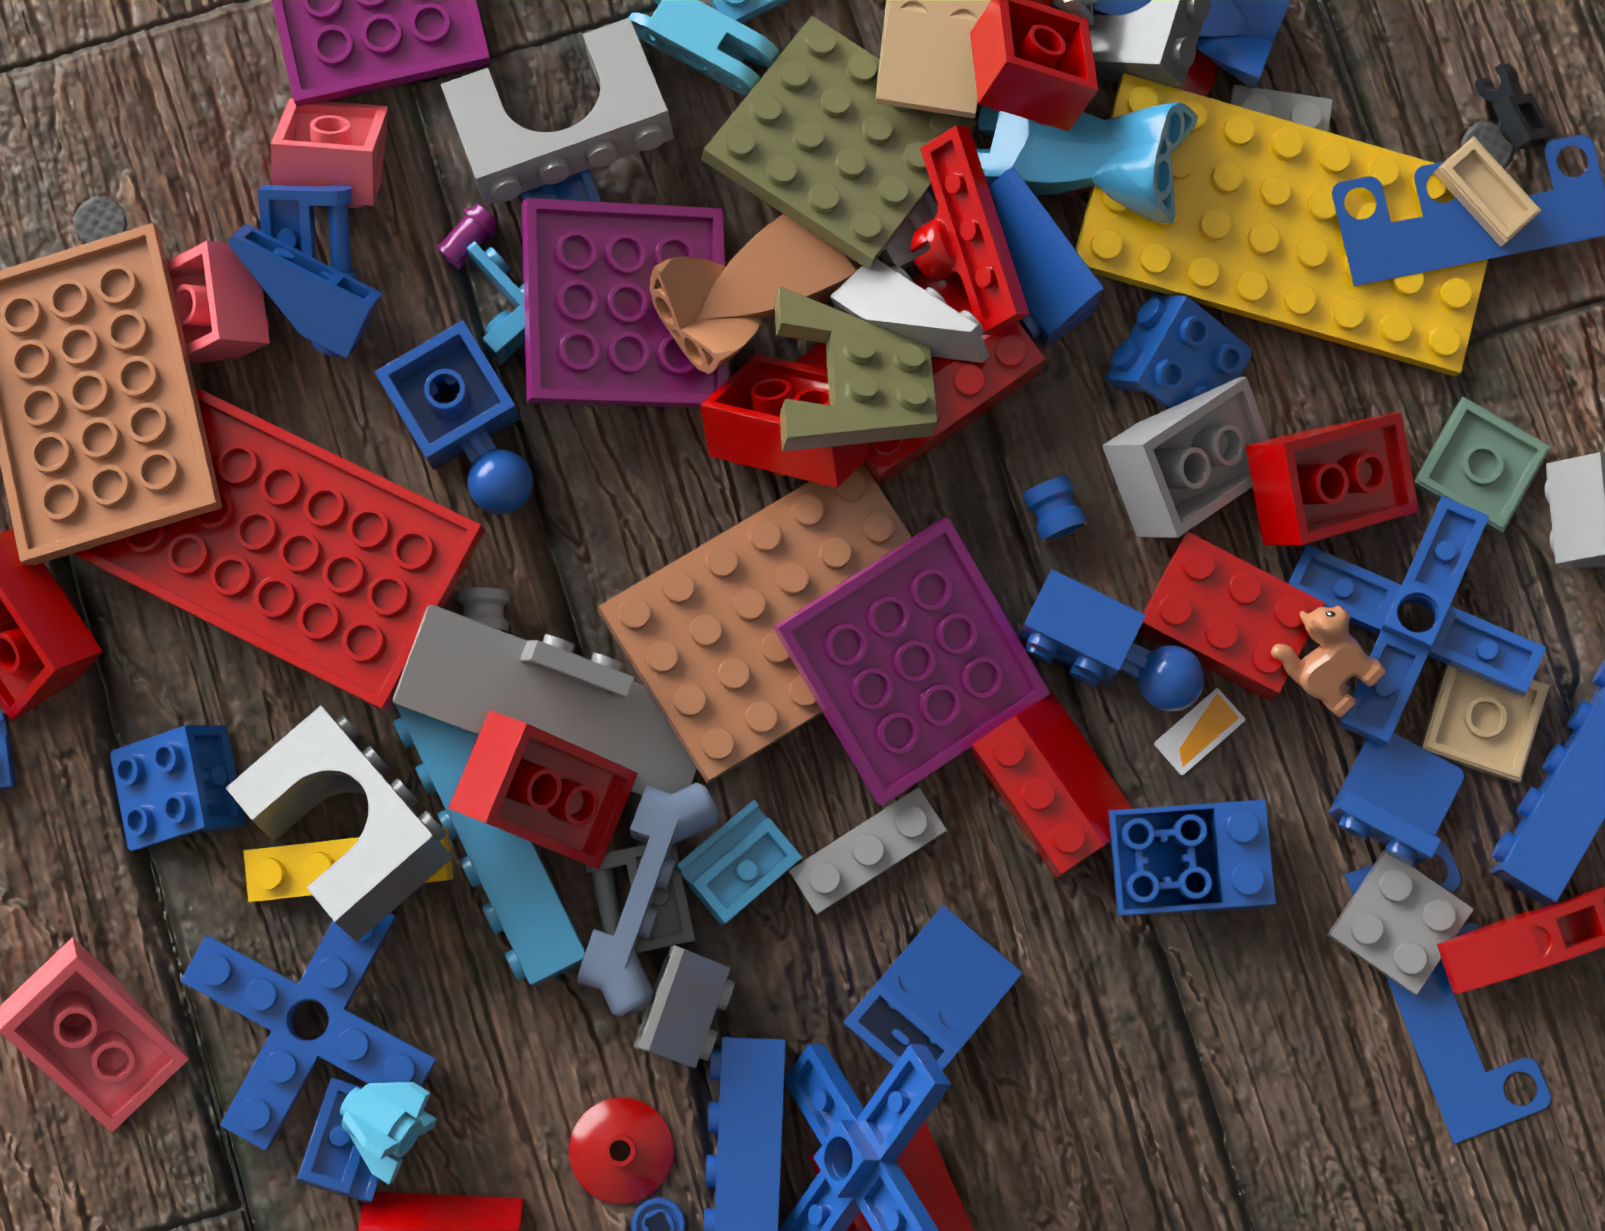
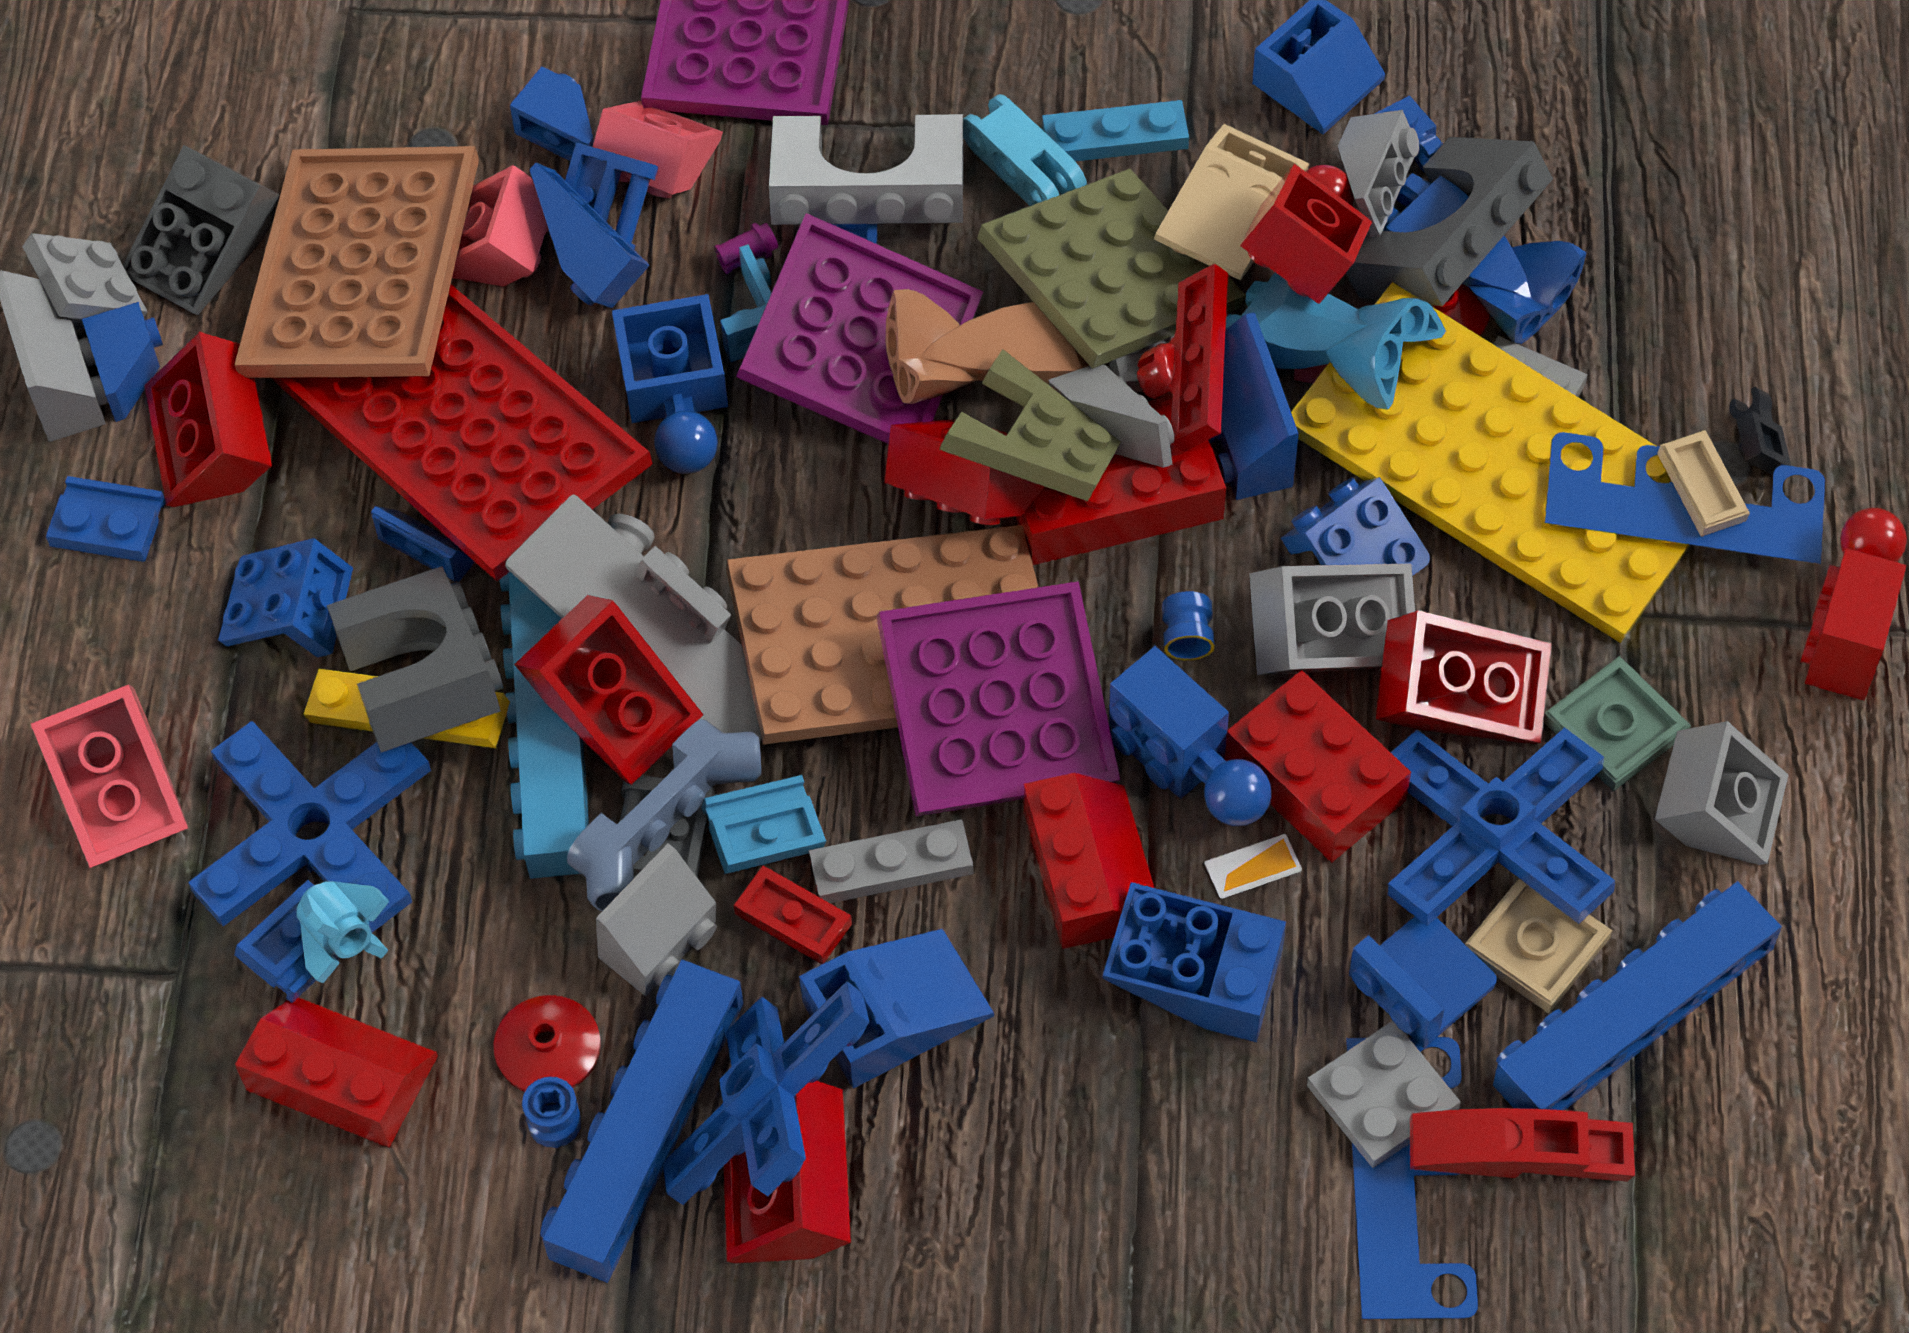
camera: 25 degrees right, 20 degrees down
(215, 150) = (552, 113): none -> blue slope
(265, 671) = (420, 542): none -> blue slope
(799, 942) = (792, 914): none -> red plate
(1332, 663) = (1401, 817): nougat animal -> none

